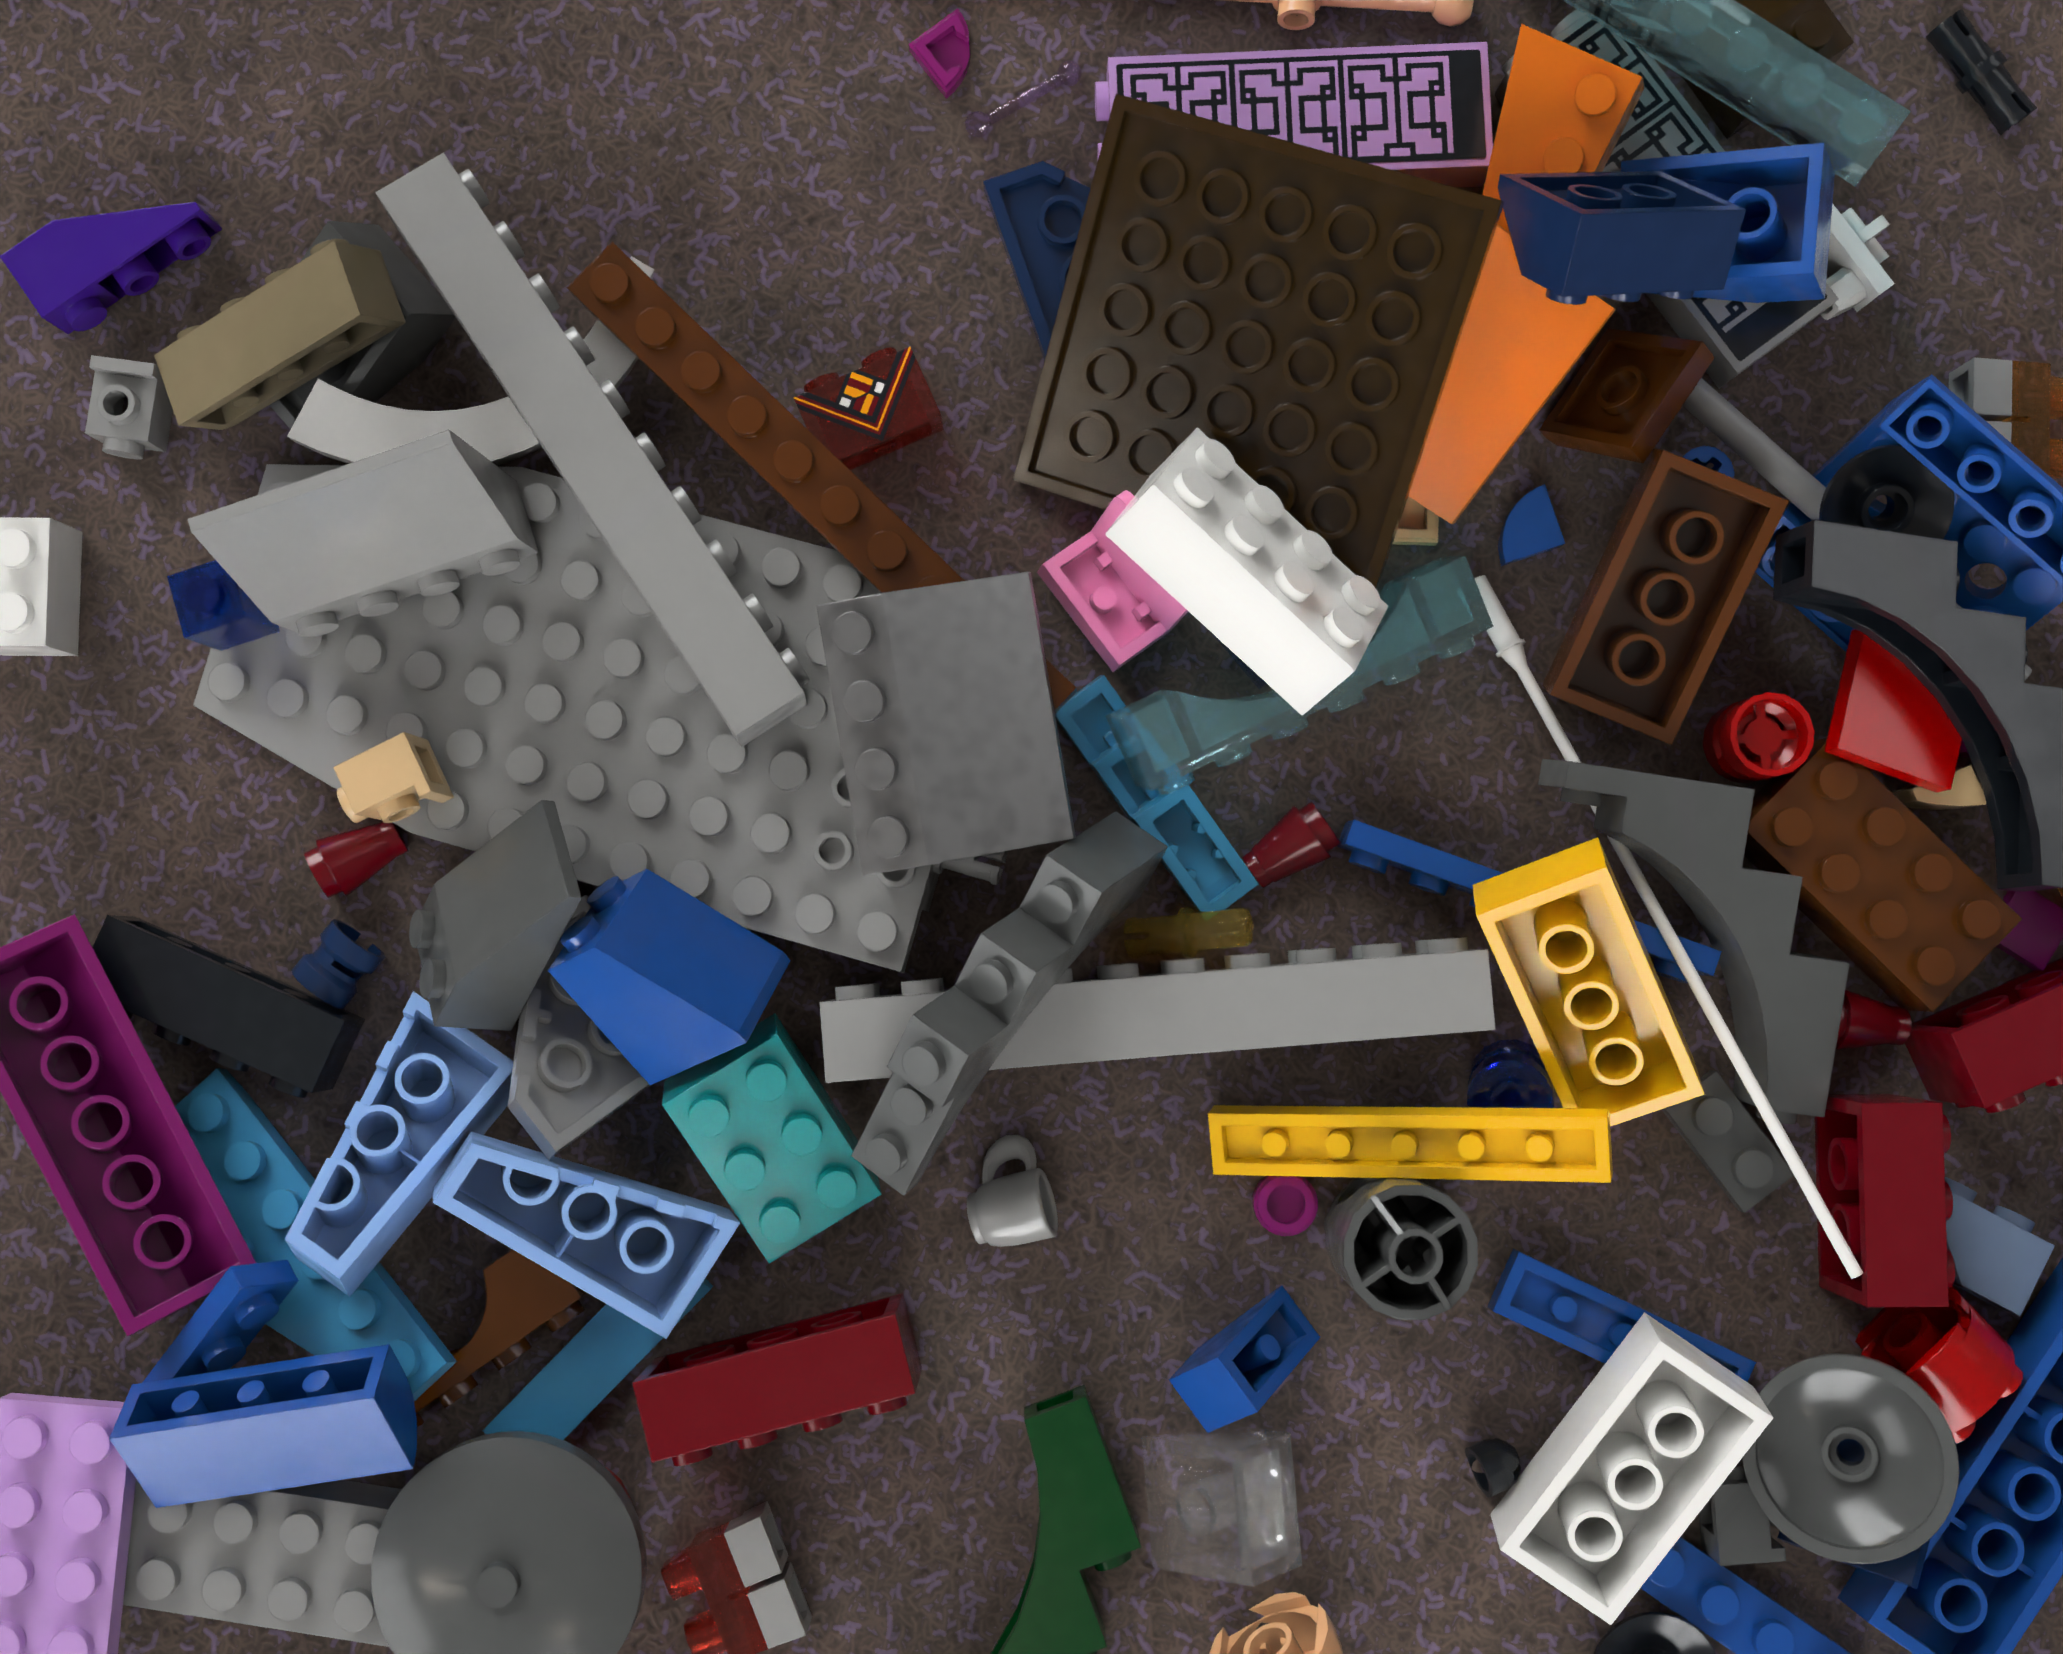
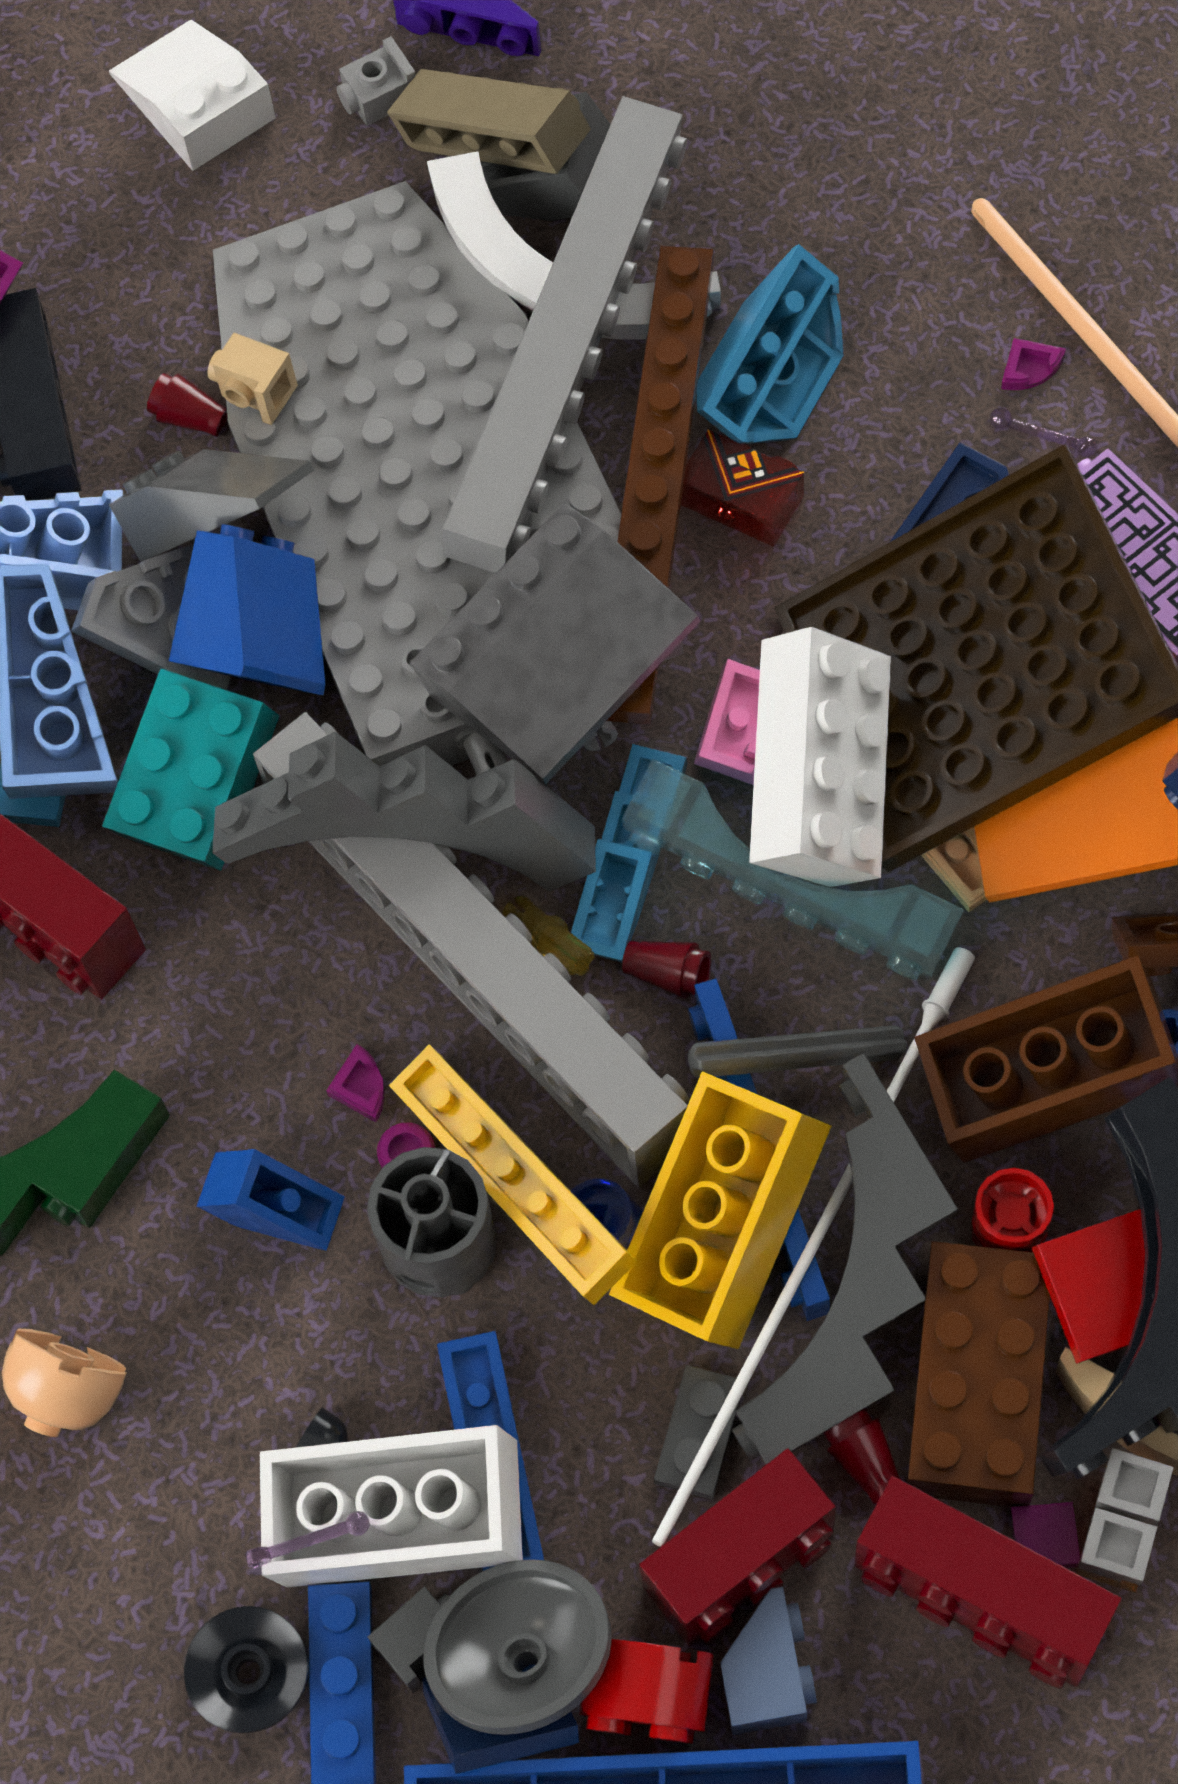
camera: 60 degrees right, 20 degrees down
(216, 609) = (291, 210): clear blue brick -> none
(337, 965) = (105, 445): dark blue wheel -> none
(371, 534) = (404, 244): light grey slope -> none
(754, 273) = (775, 354): none -> dark azure wedge
(1015, 1206) = (264, 968): light grey piece -> none
(1189, 1197) = (359, 1084): none -> magenta tile
(1223, 1504) = (155, 1260): clear slope -> none
(1474, 804) = (795, 1051): none -> dark grey axle
(1529, 528) = (1034, 961): blue tile -> none
(1645, 1522) = (356, 1524): none -> clear purple hinge

